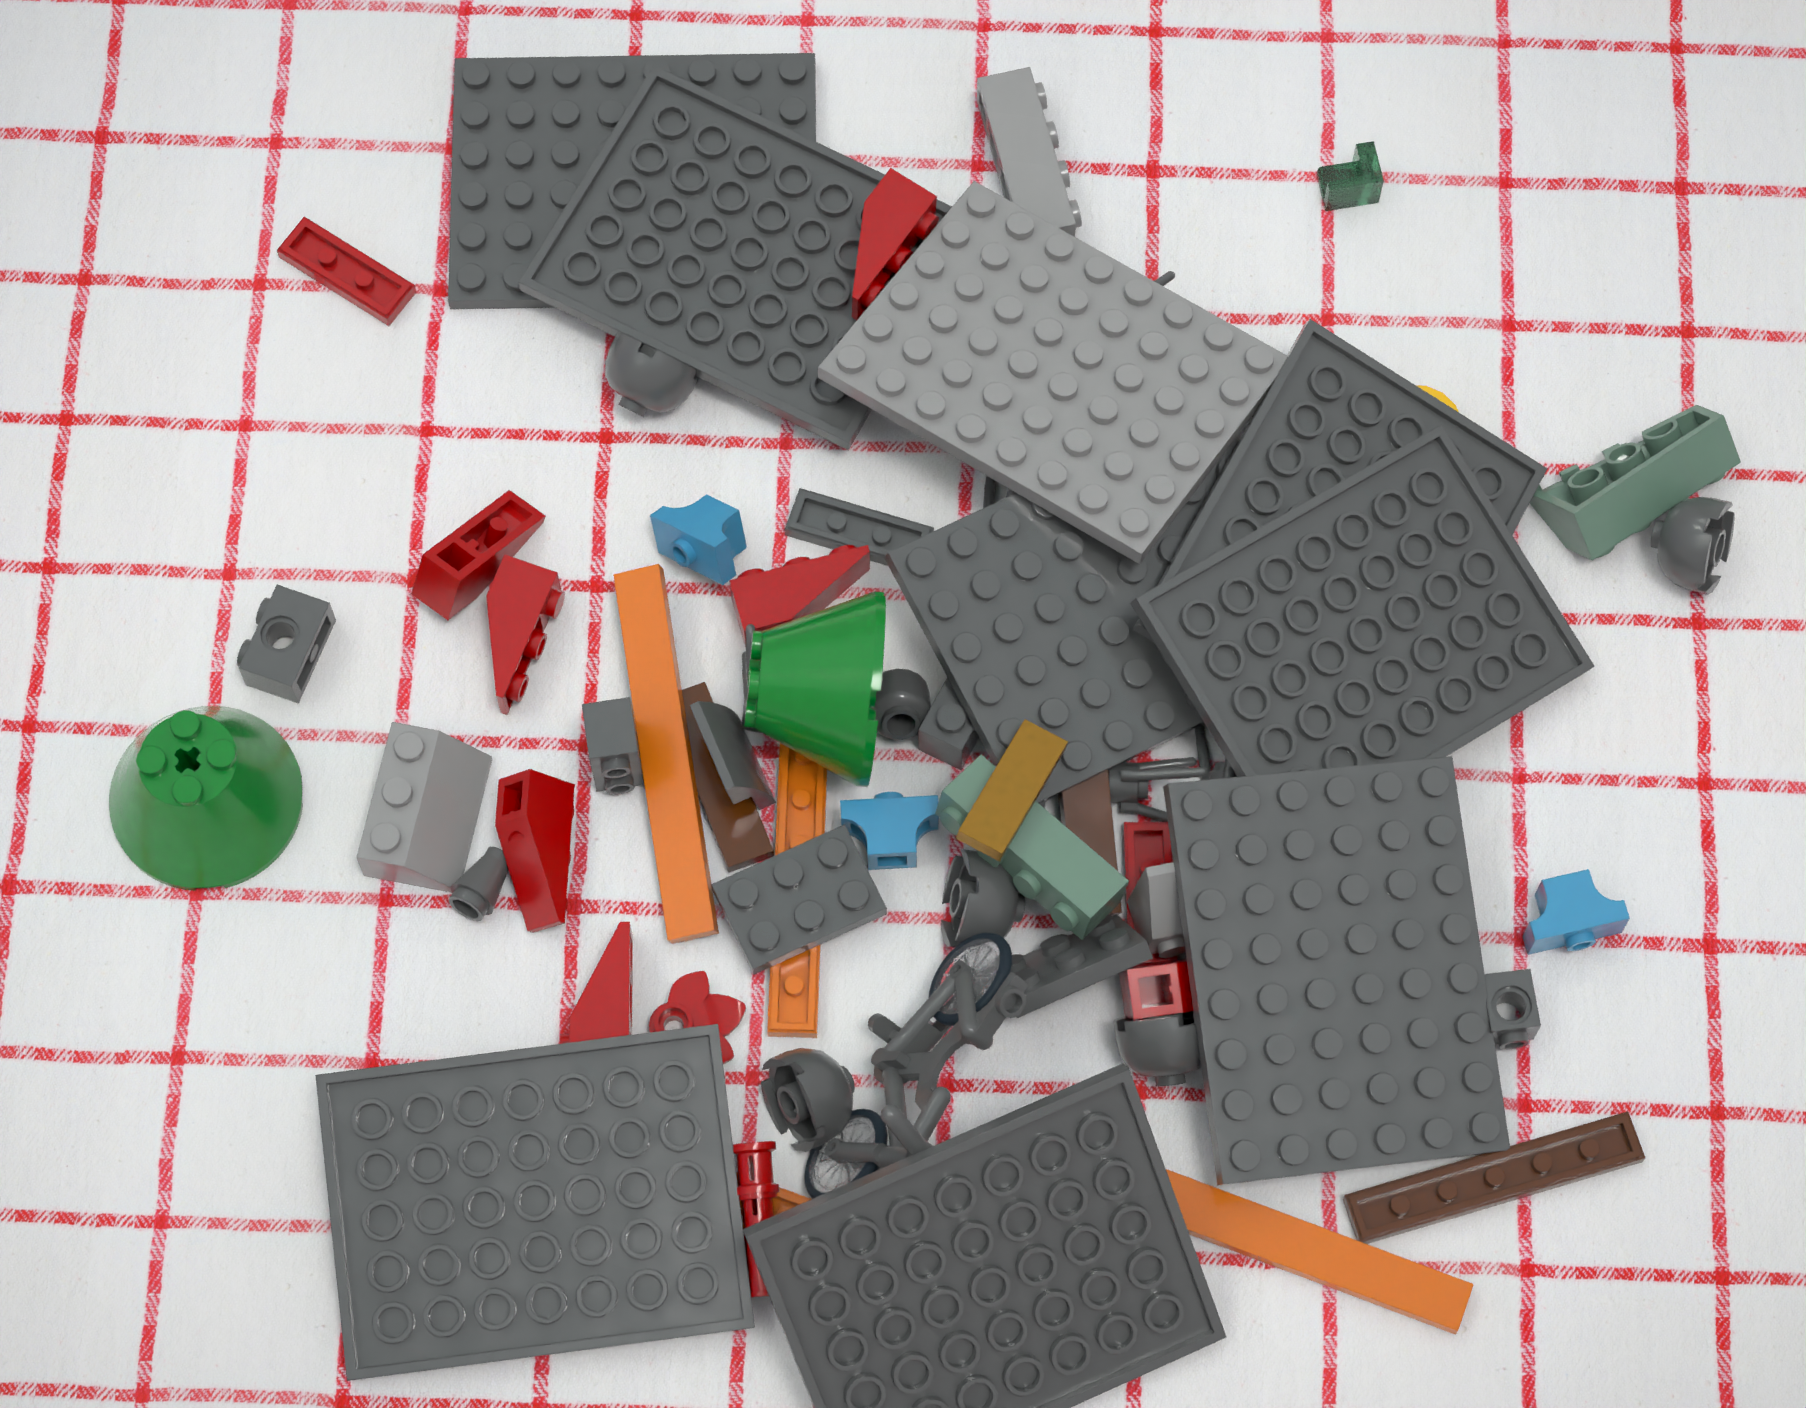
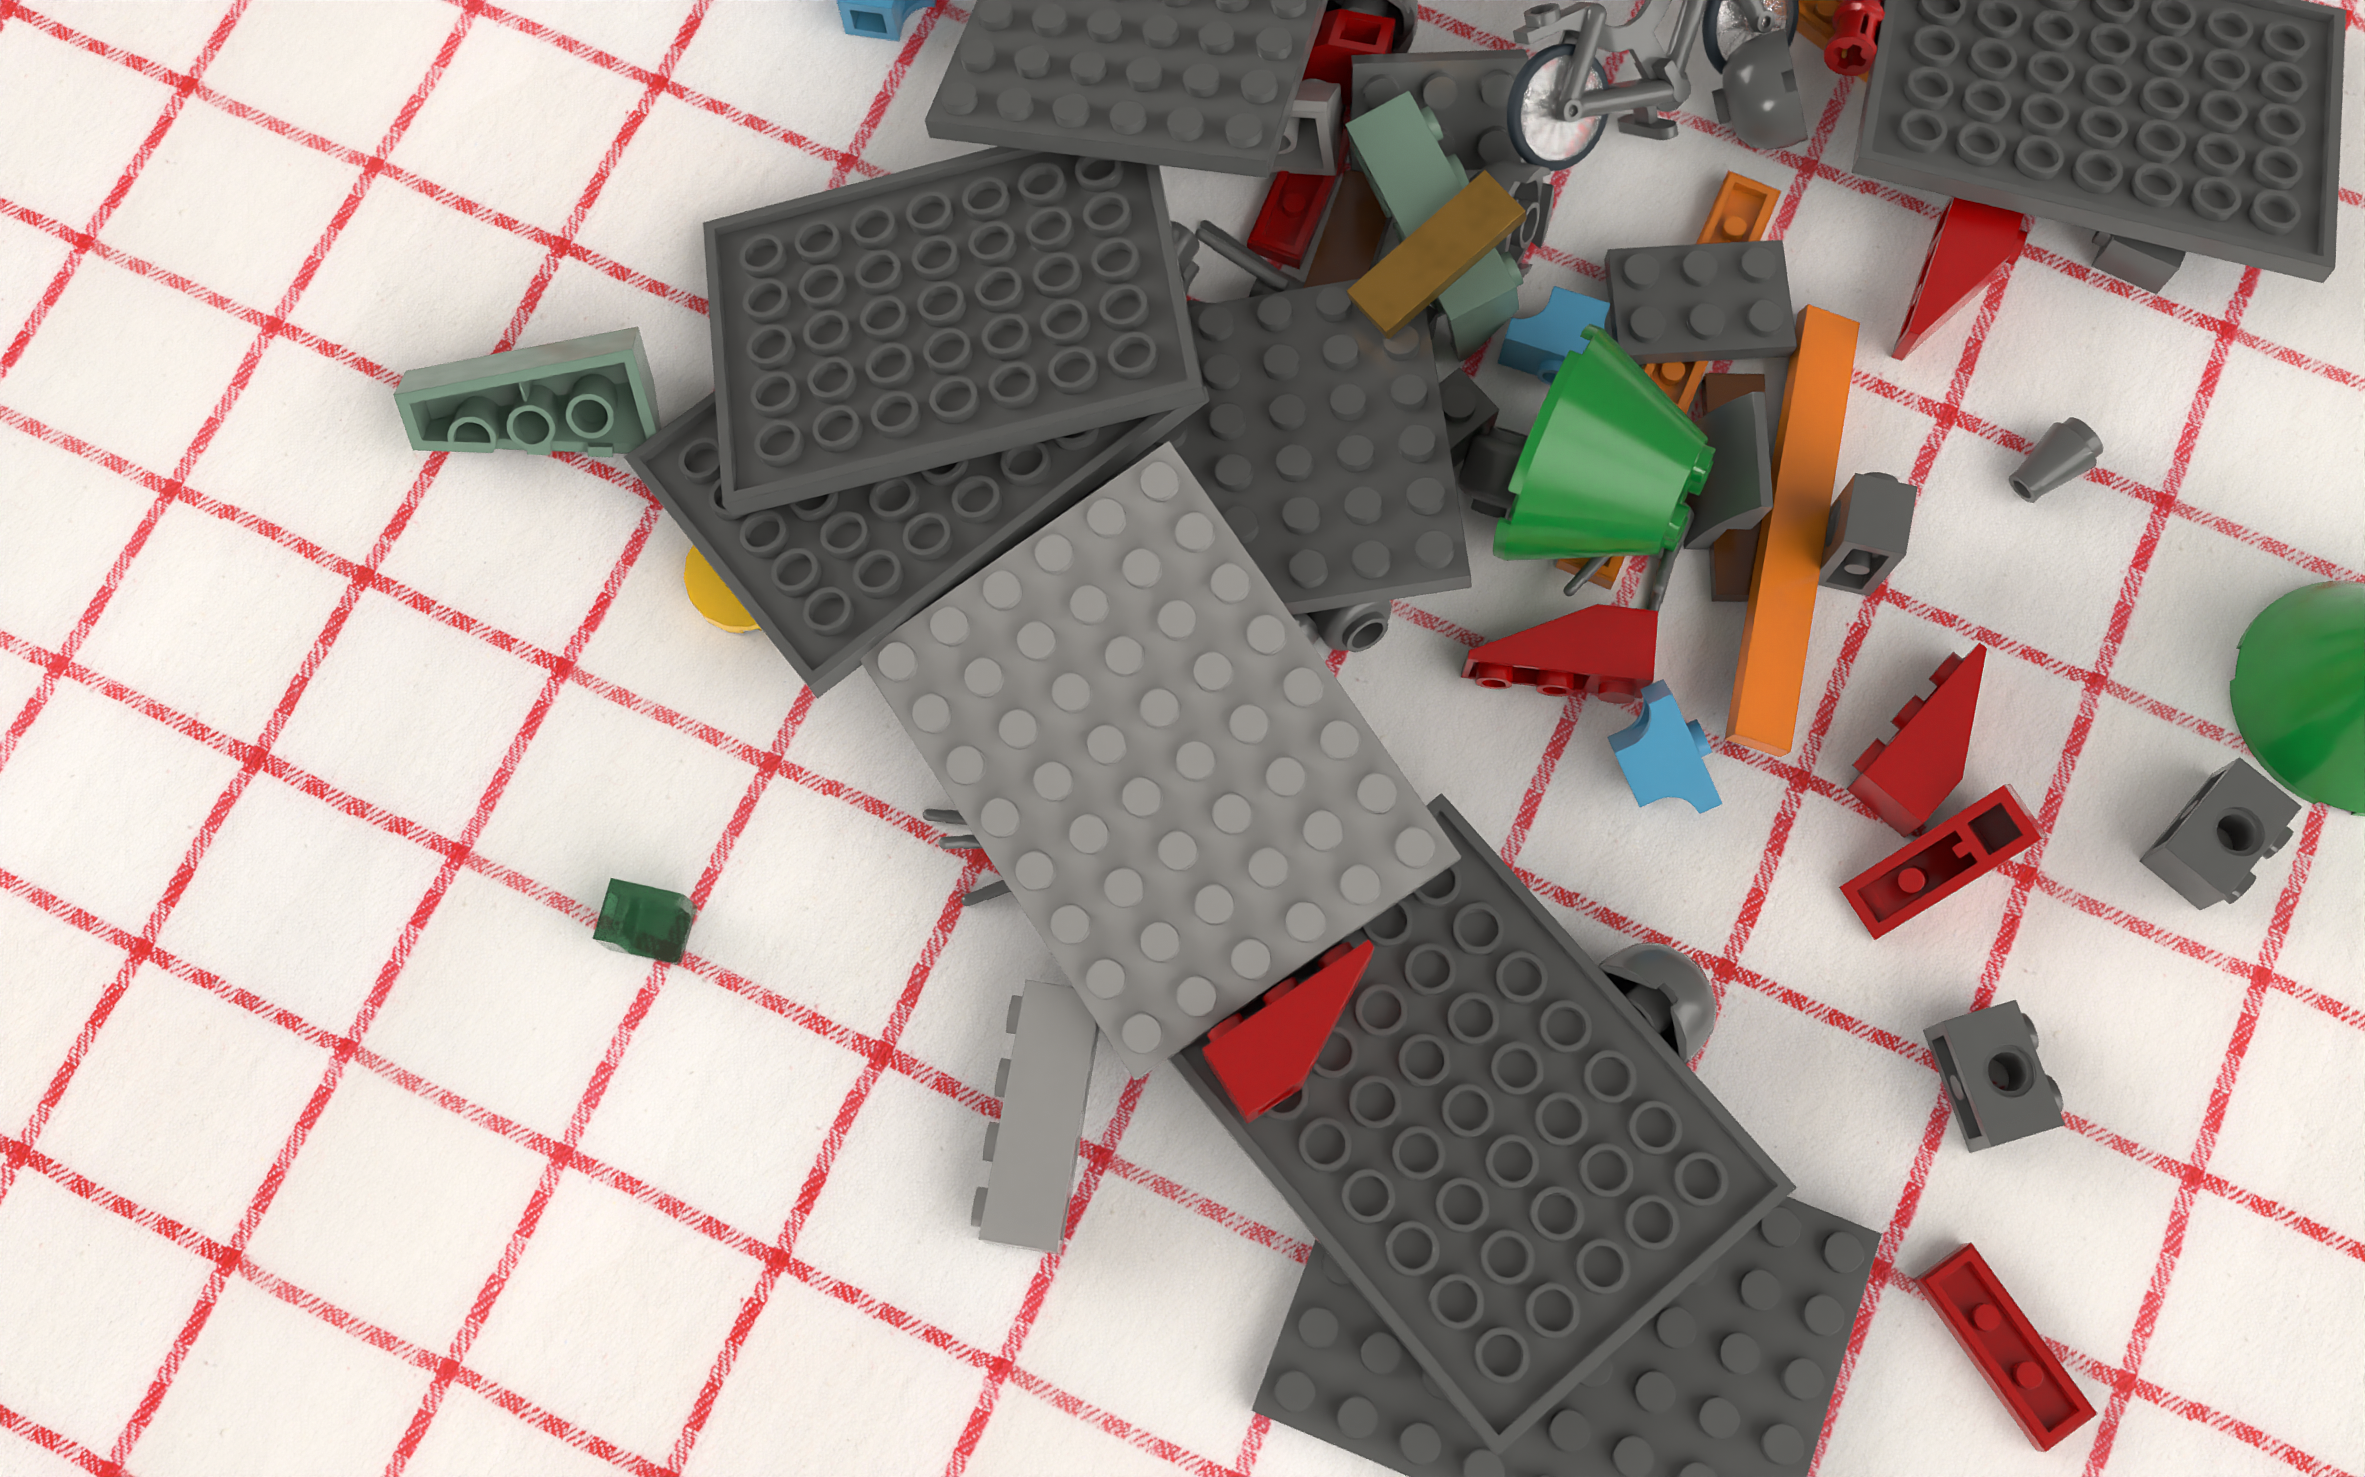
camera: 155 degrees left, 5 degrees up
(396, 398) = (1983, 1111): none -> dark grey brick
(423, 808) = (2103, 568): light grey slope -> none
(535, 837) = (1981, 477): red slope -> none
(694, 1006) = (1848, 229): red plate -> none
(840, 523) = (1458, 714): dark grey tile -> none
(1694, 541) = (515, 299): dark grey cylinder -> none

